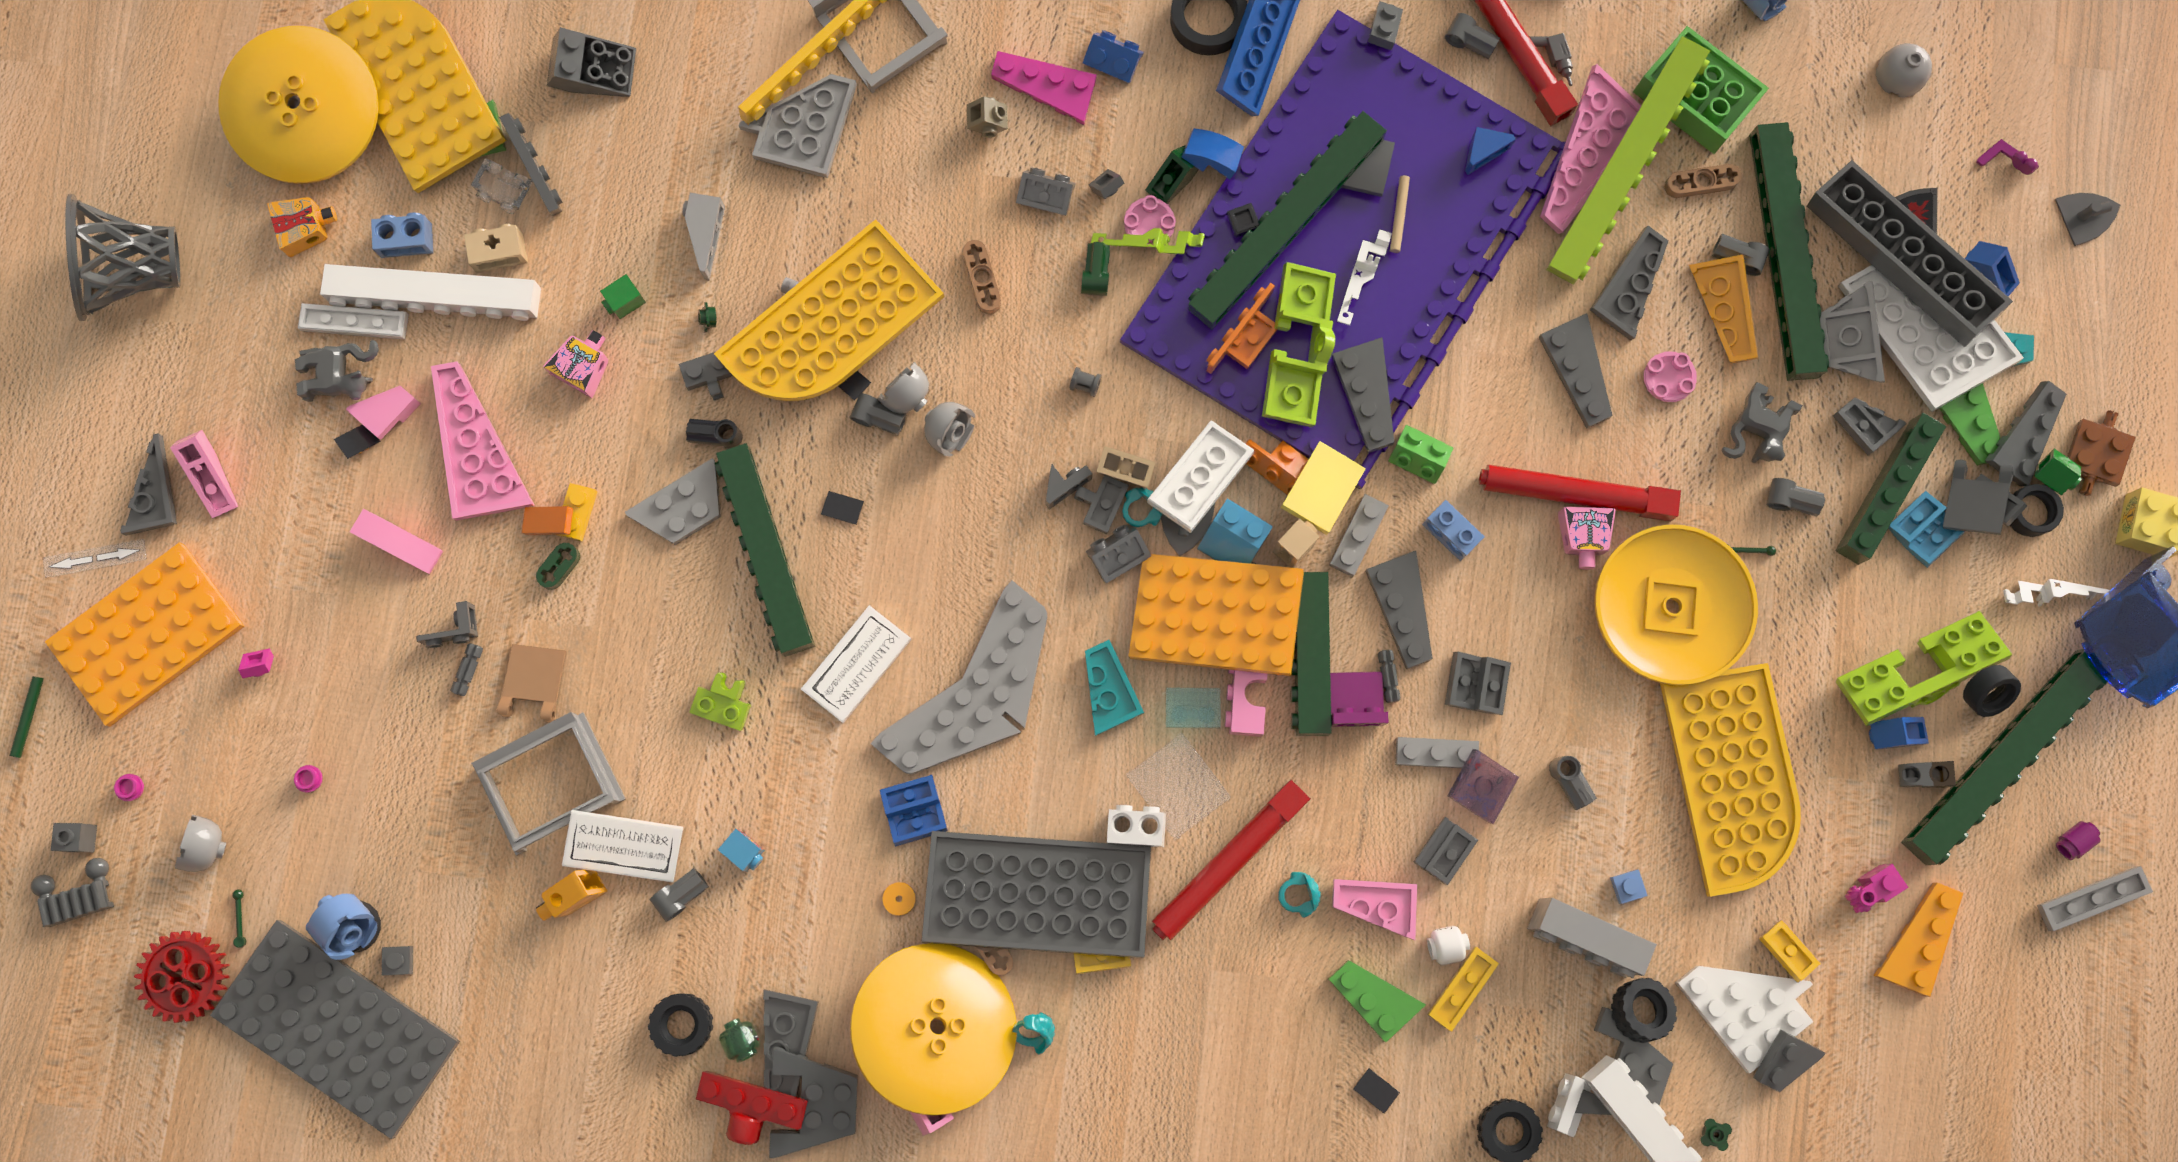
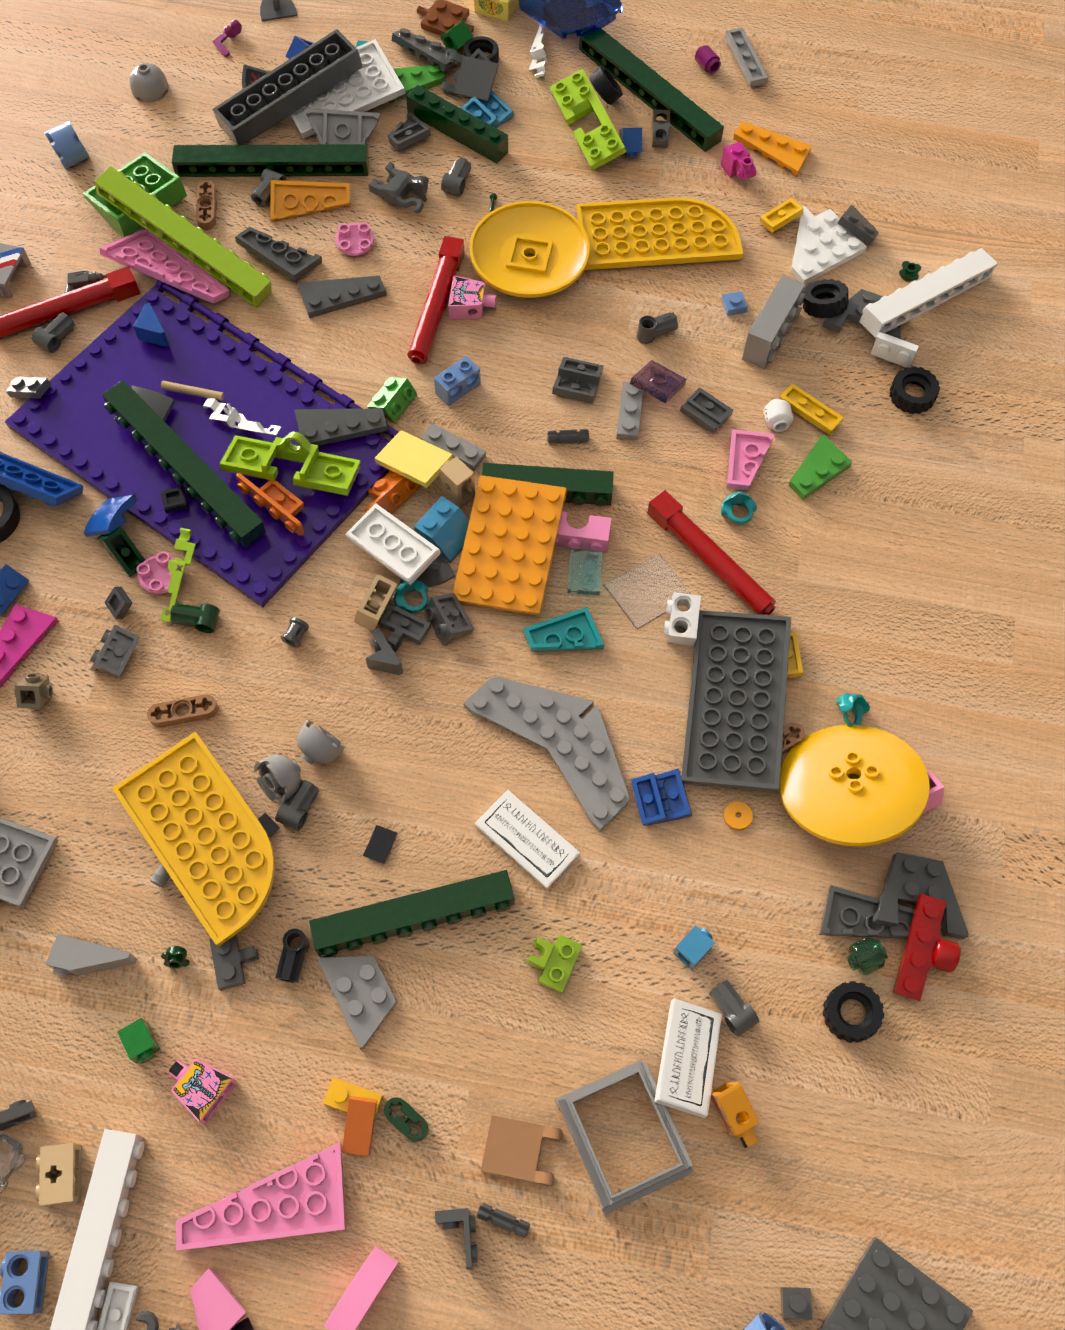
camera: 85 degrees left, 15 degrees down
(1357, 699) = (587, 453): magenta bracket -> none
(1376, 1090) = (888, 473): black piece -> none
(1402, 604) = (508, 423): dark grey wing -> none

